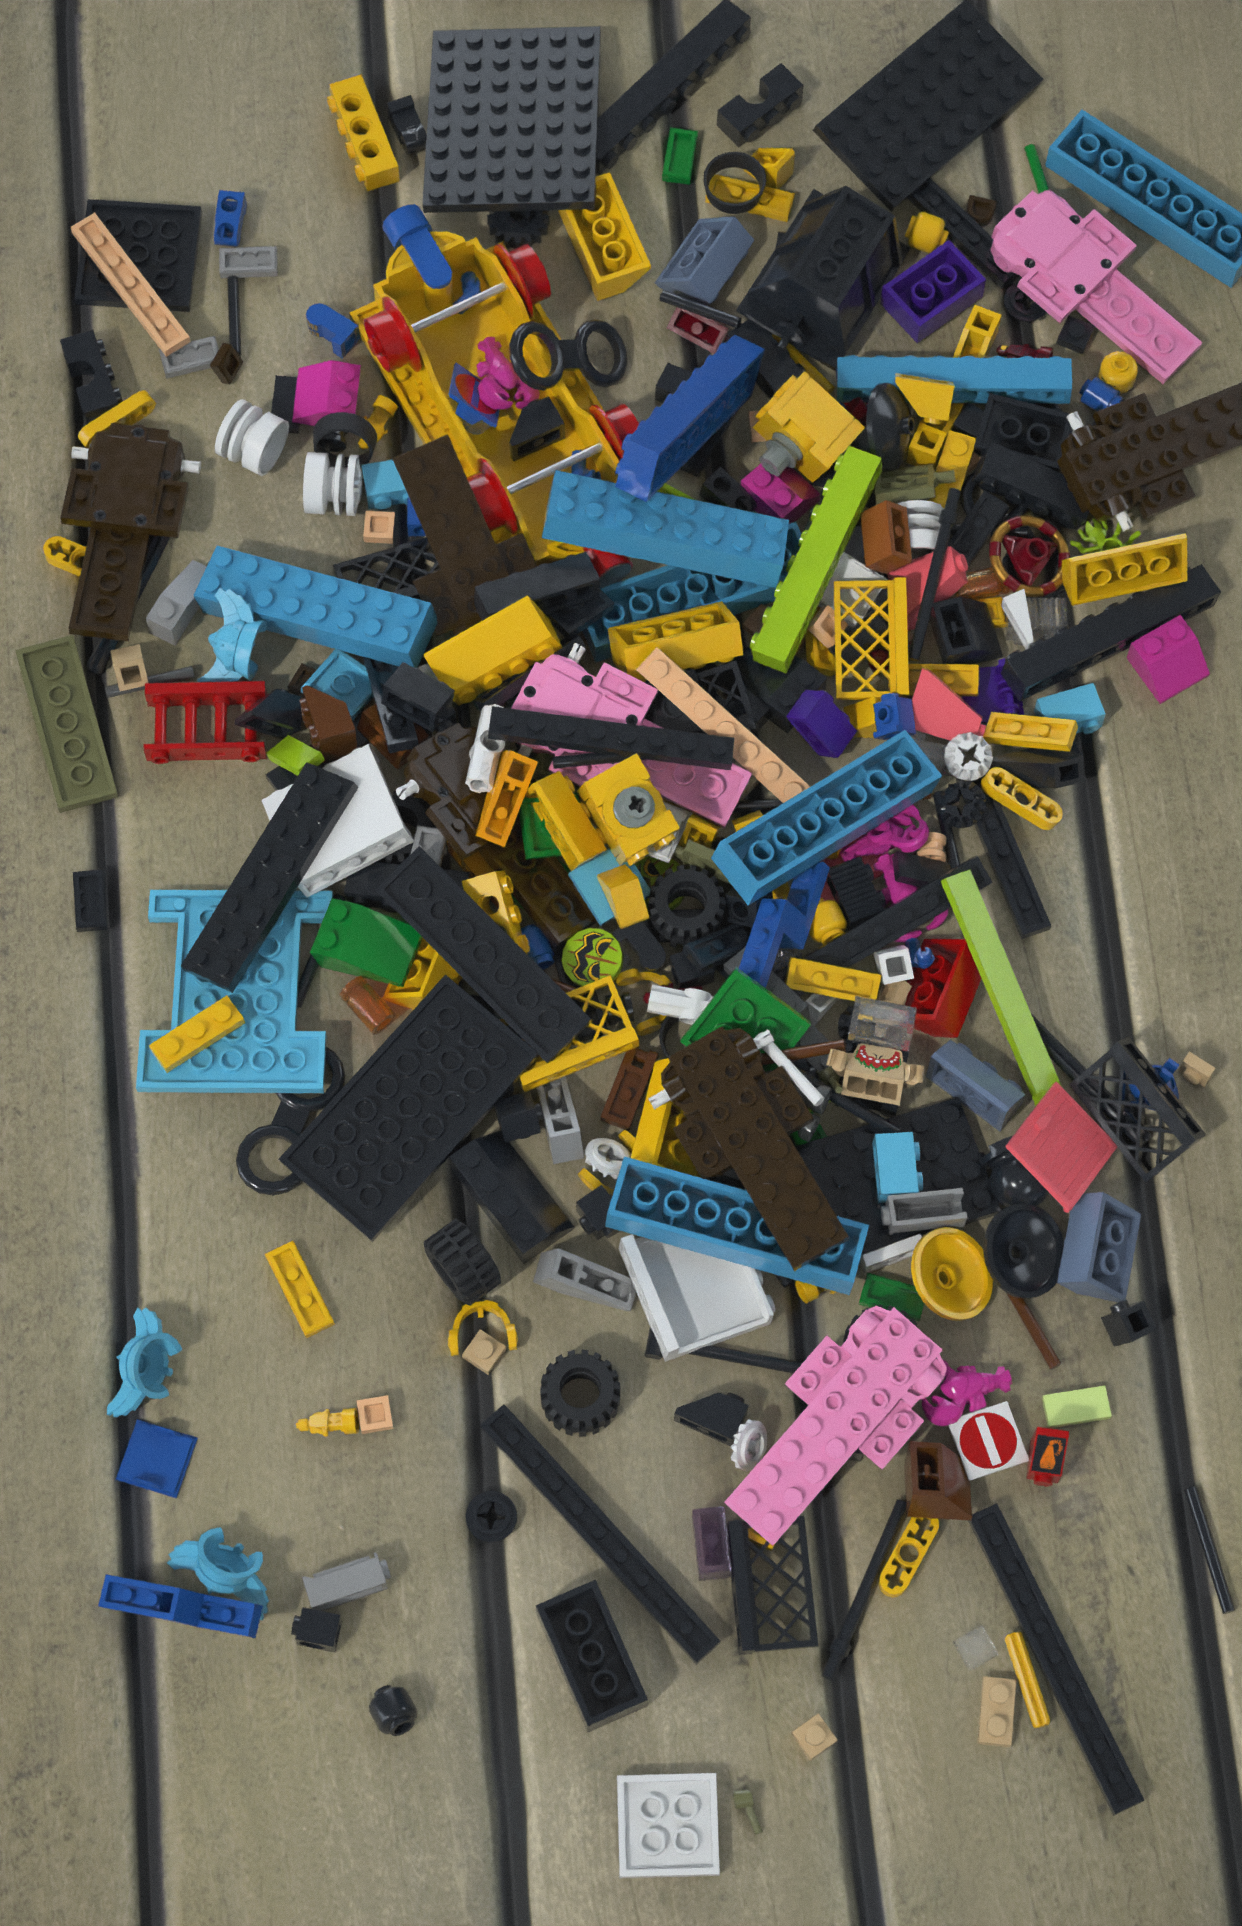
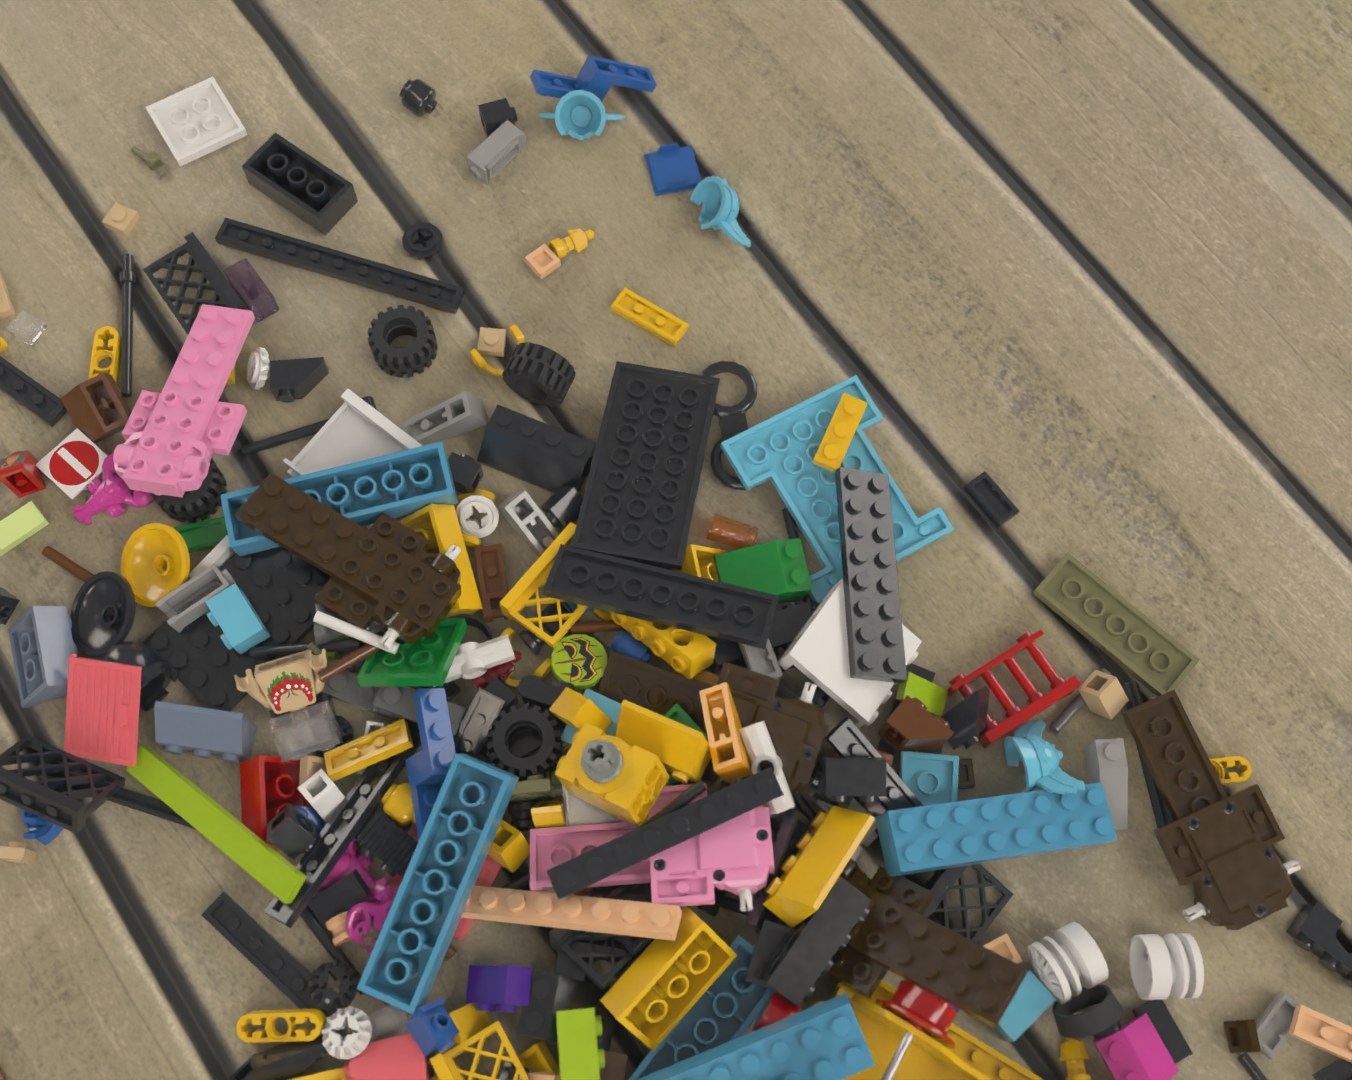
camera: 145 degrees right, 0 degrees up
(125, 413) = (1286, 924): yellow beam -> none
(937, 935) = (291, 832): none -> black brick

